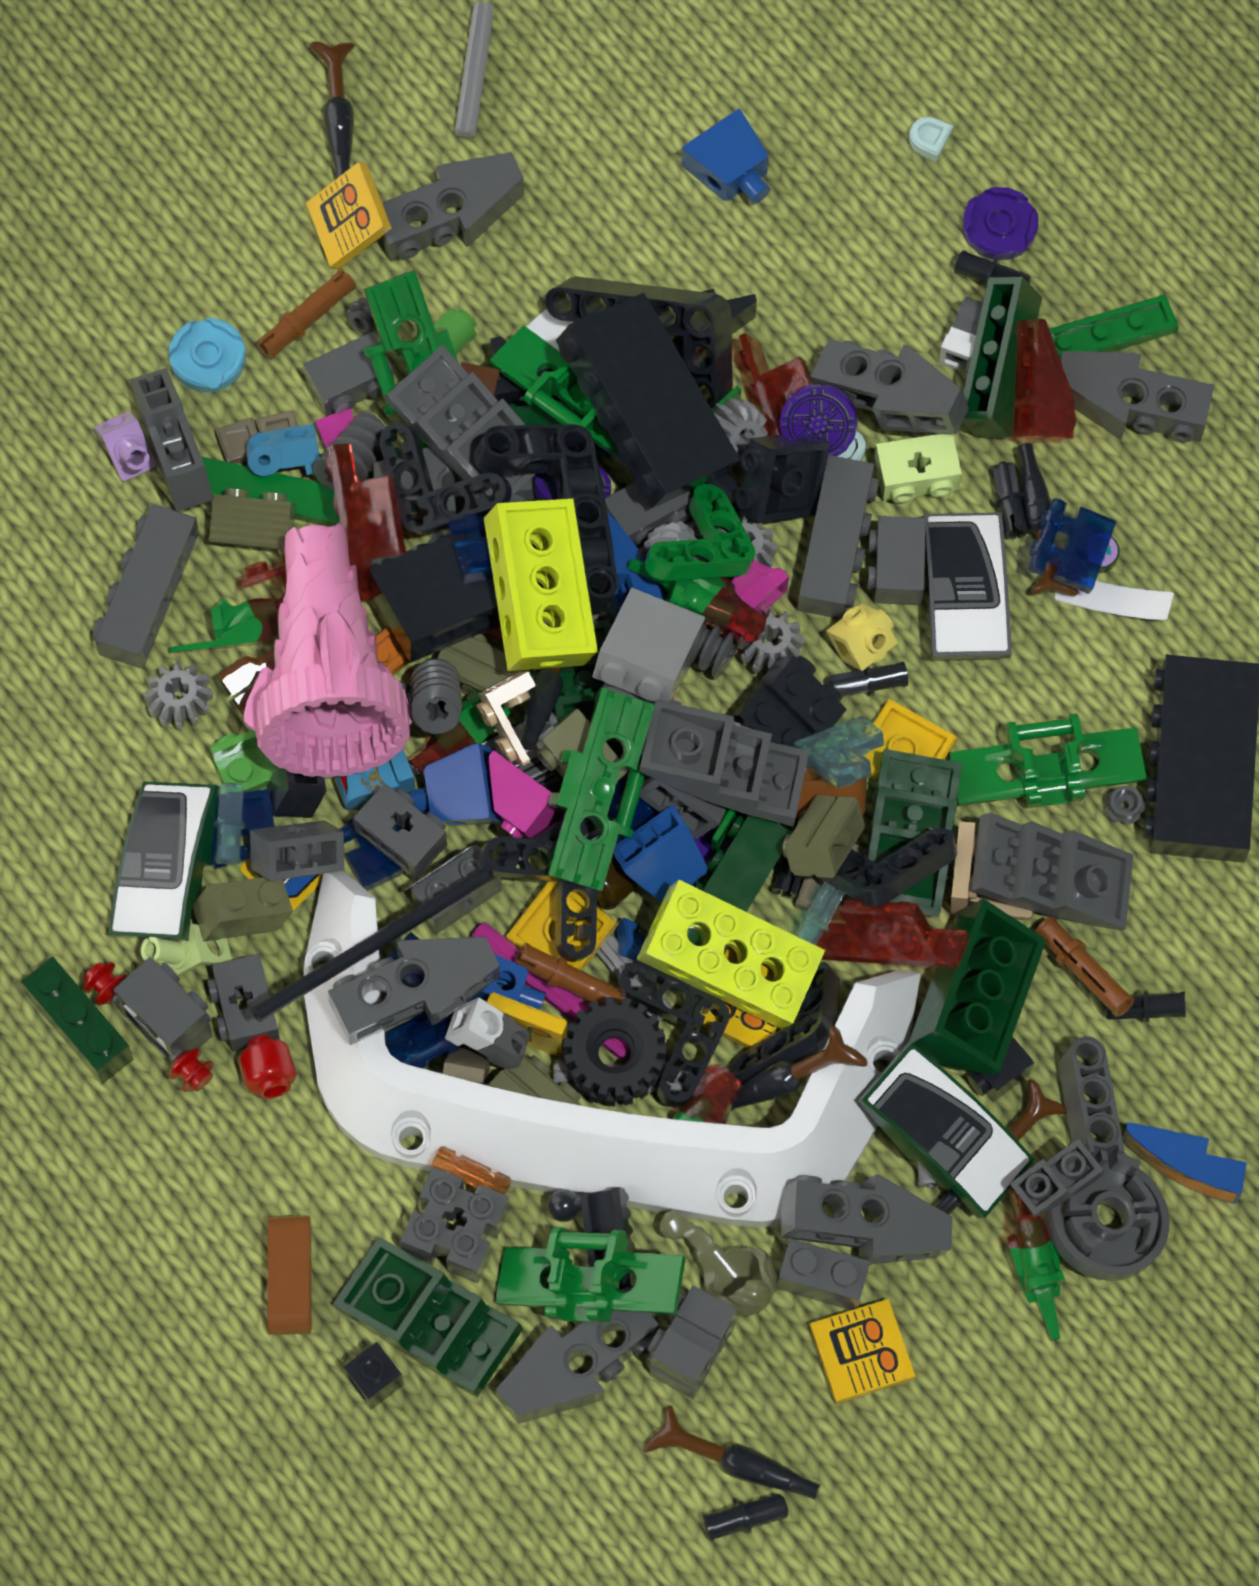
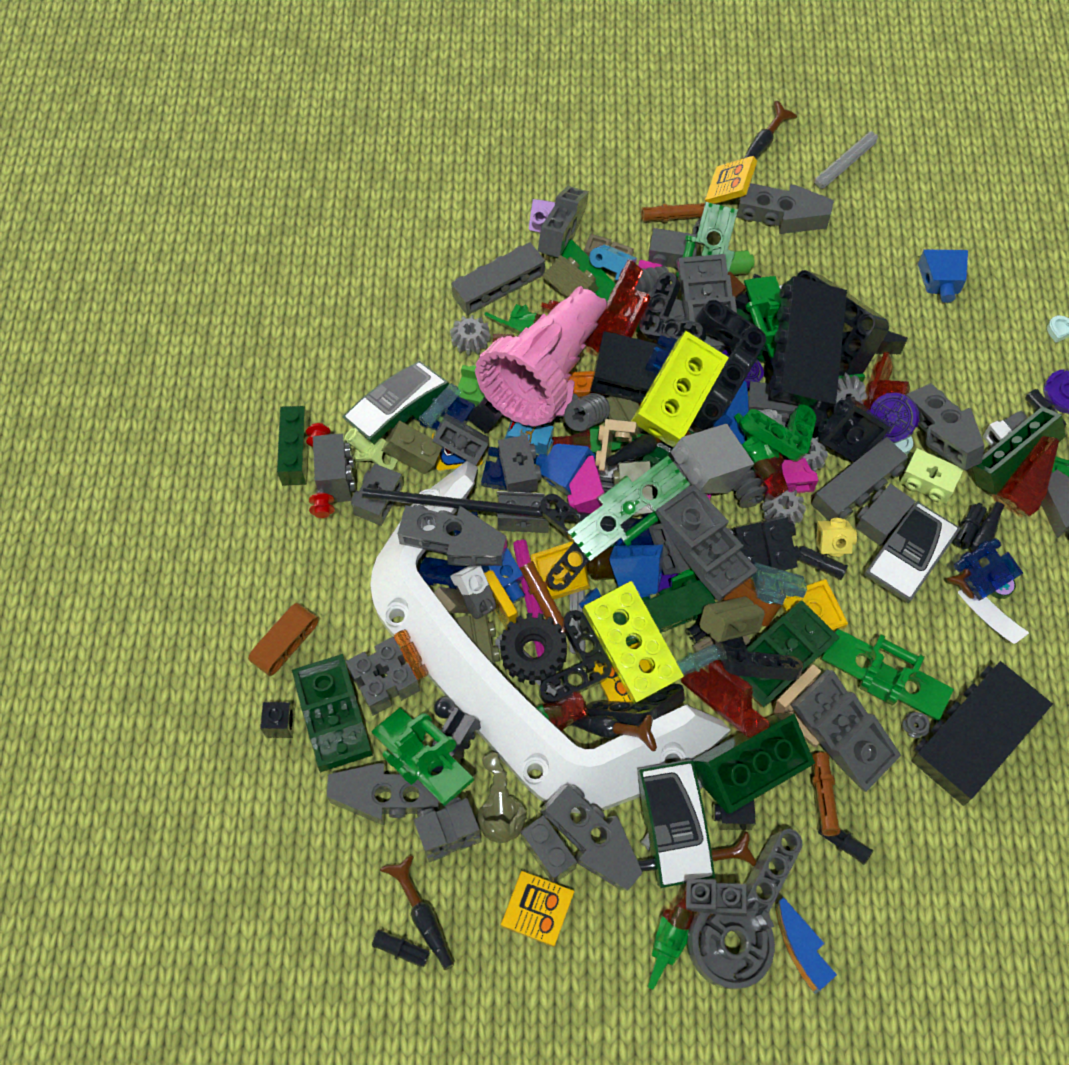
camera: 40 degrees right, 5 degrees down
(207, 355) = (614, 201): medium azure tile -> none
(267, 1067) = (360, 531): red head -> none

